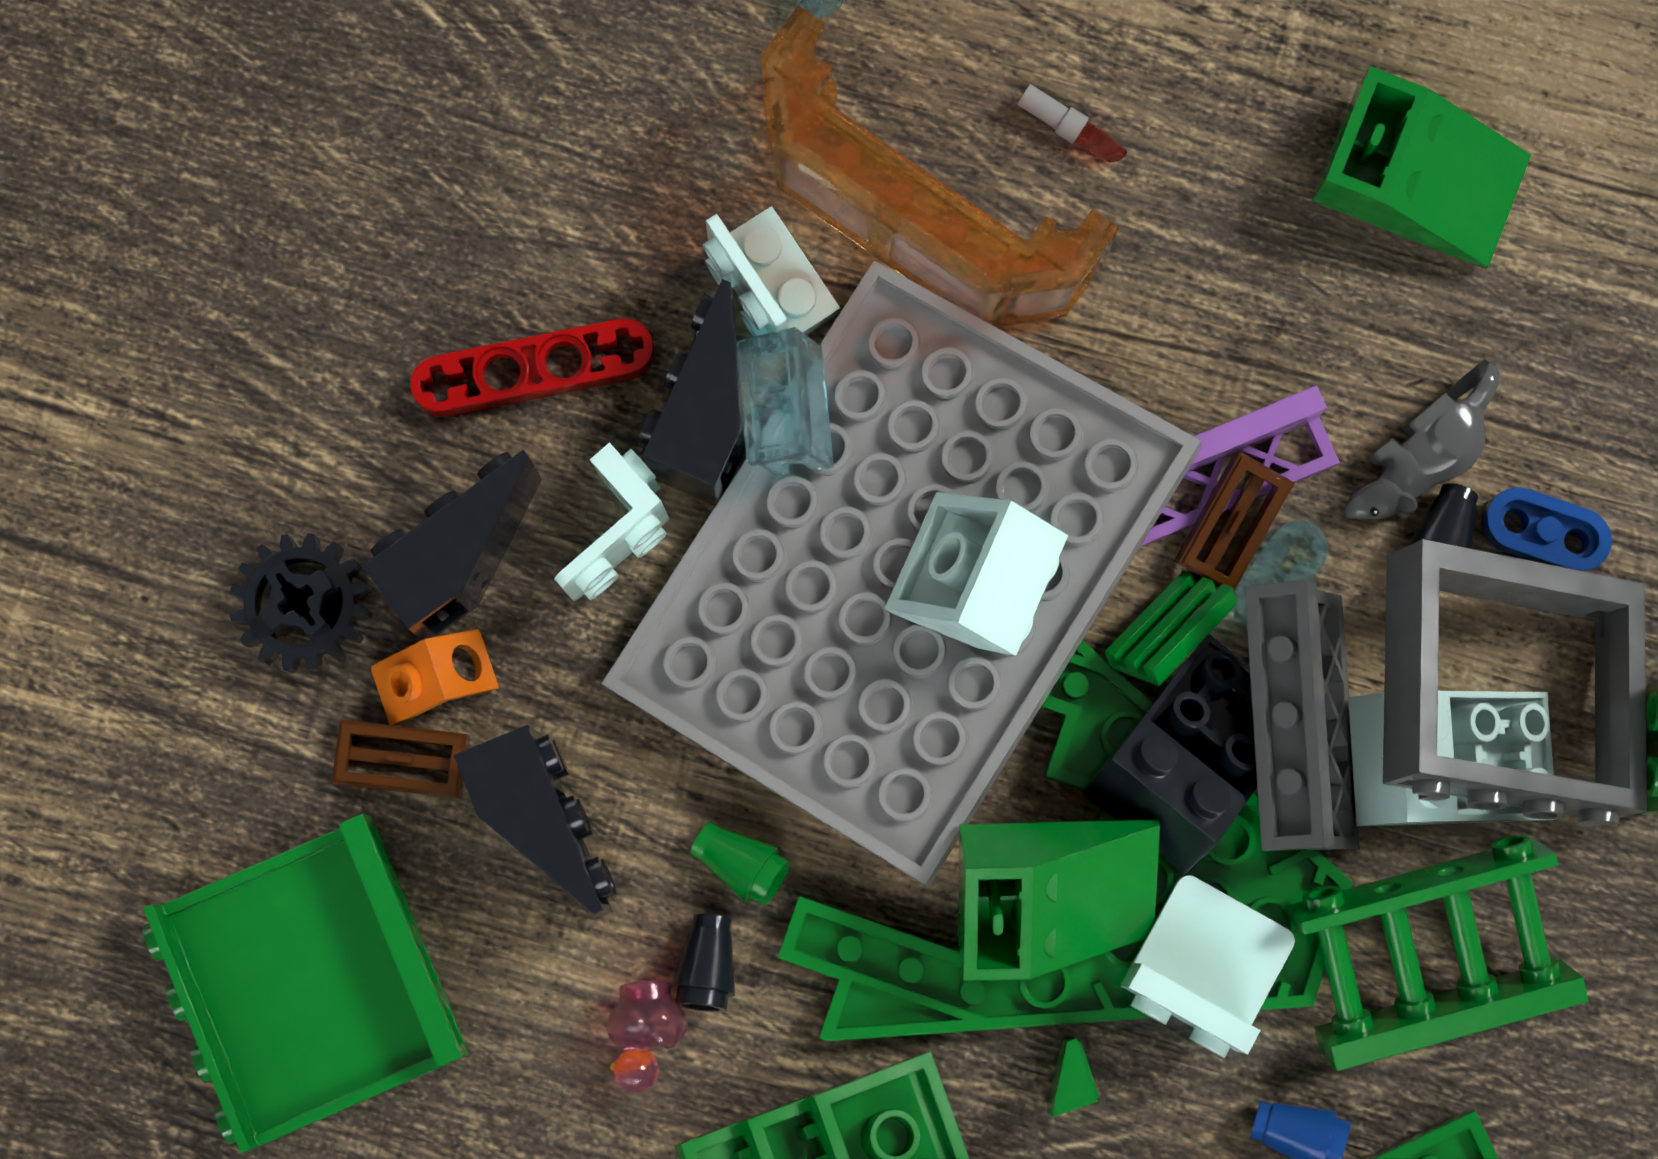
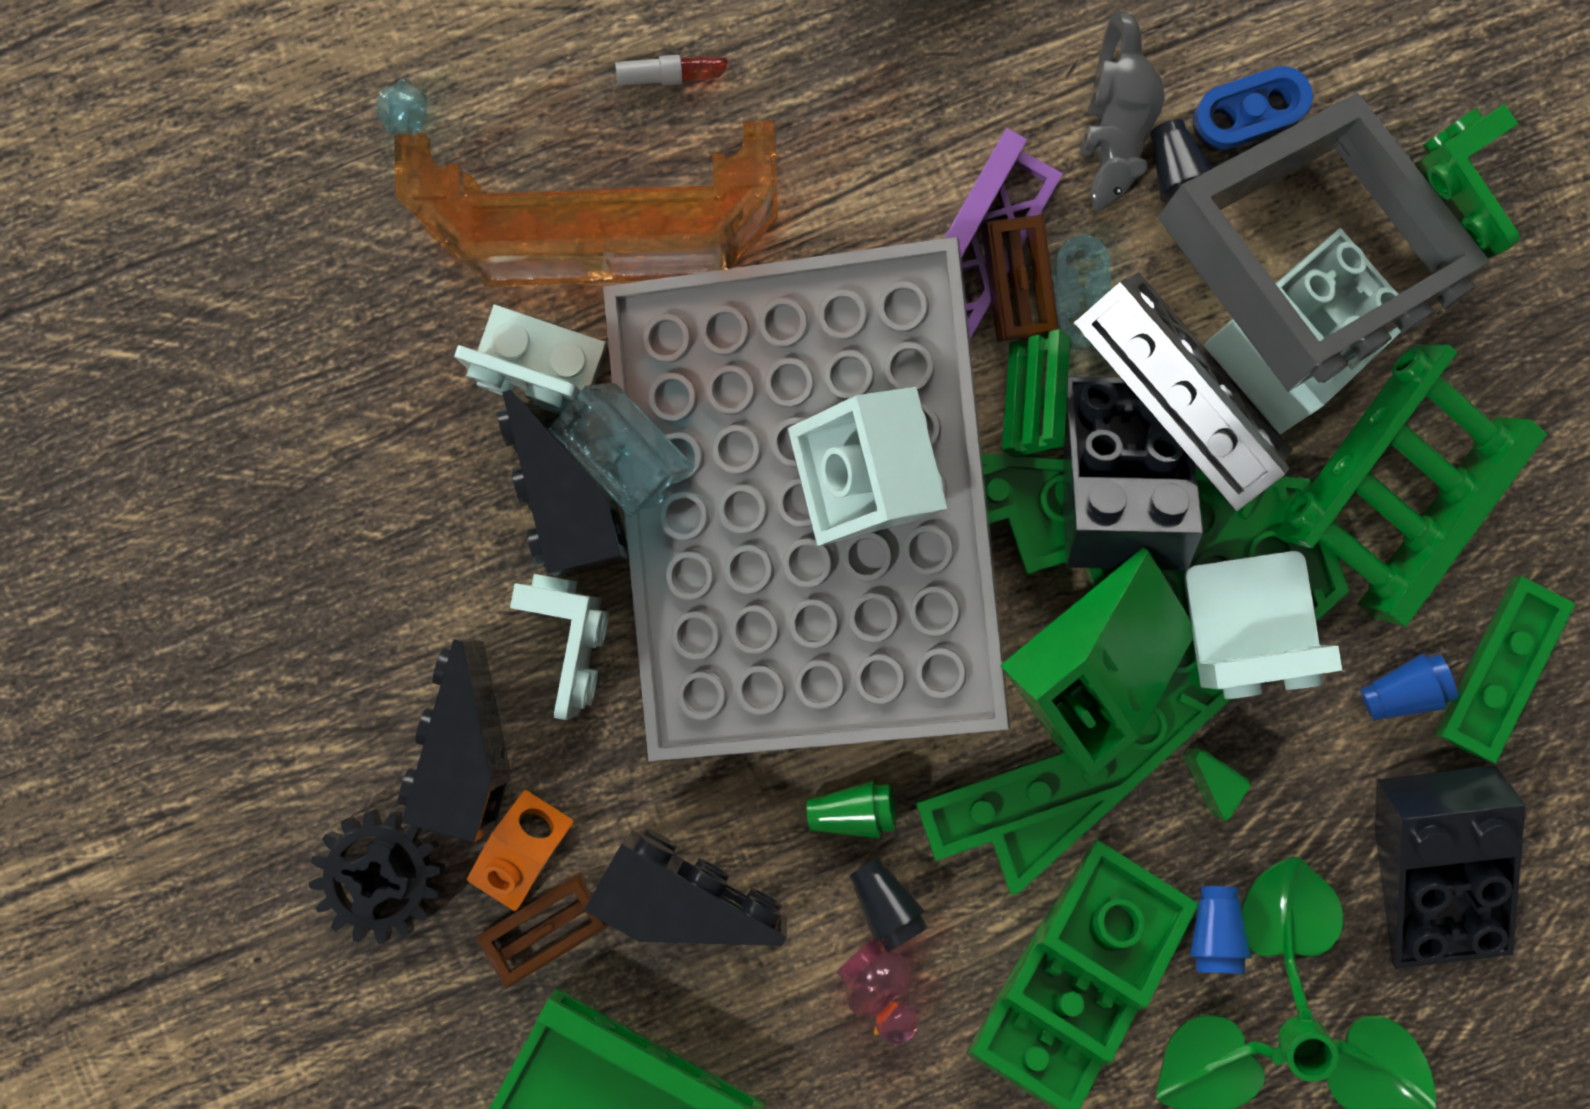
camera: 40 degrees left, 5 degrees up
(534, 378) = (417, 570): red beam -> none

